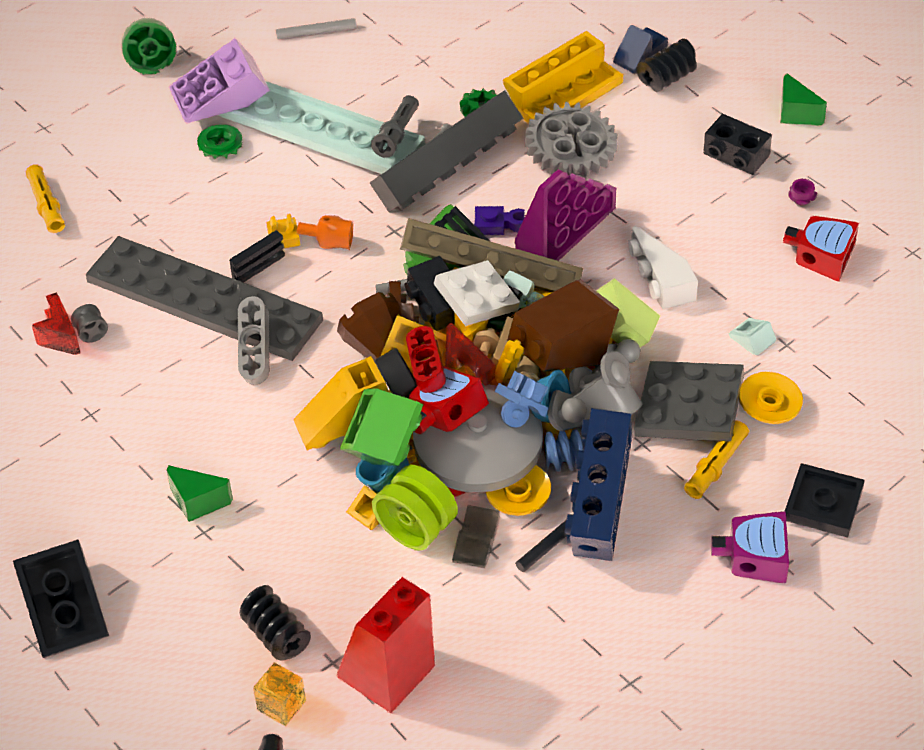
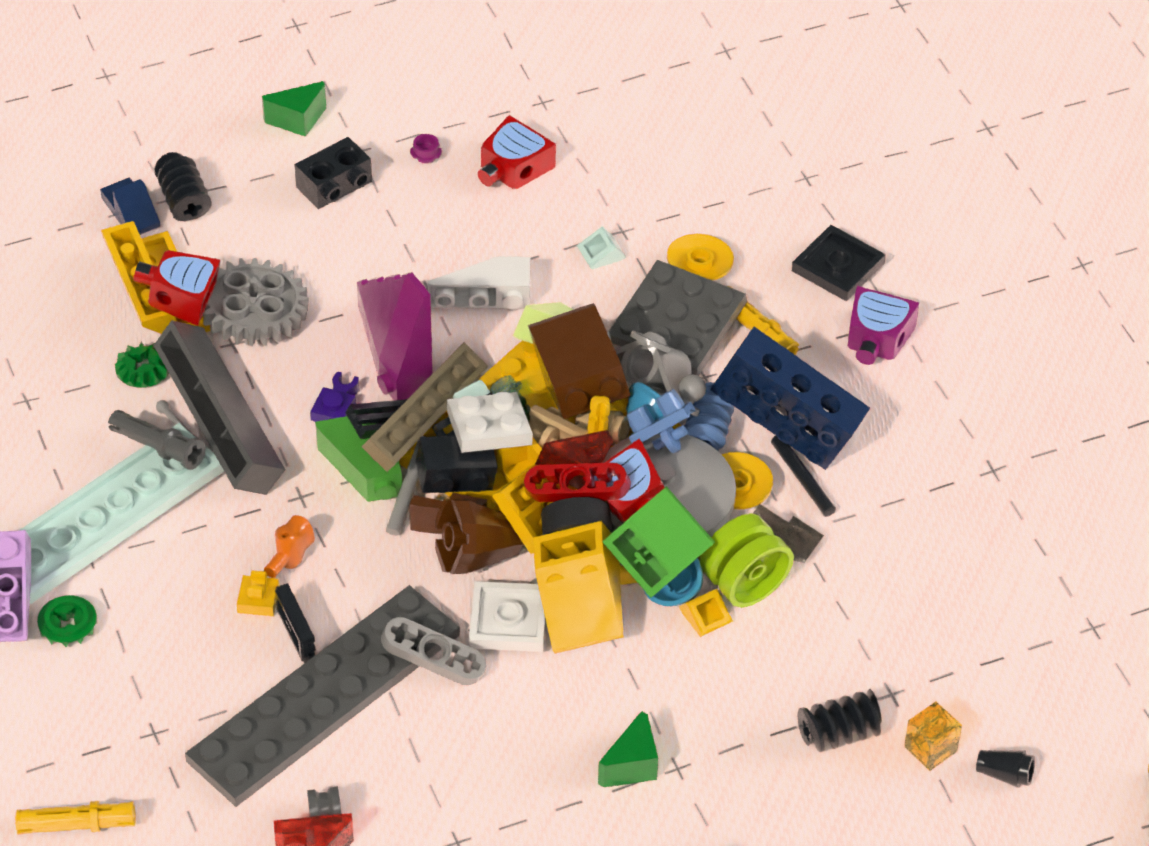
camera: 75 degrees left, 0 degrees up
(306, 375) = (507, 617): none -> white plate
(391, 646) = (927, 614): slope -> none
(543, 83) = (180, 284): none -> red torso

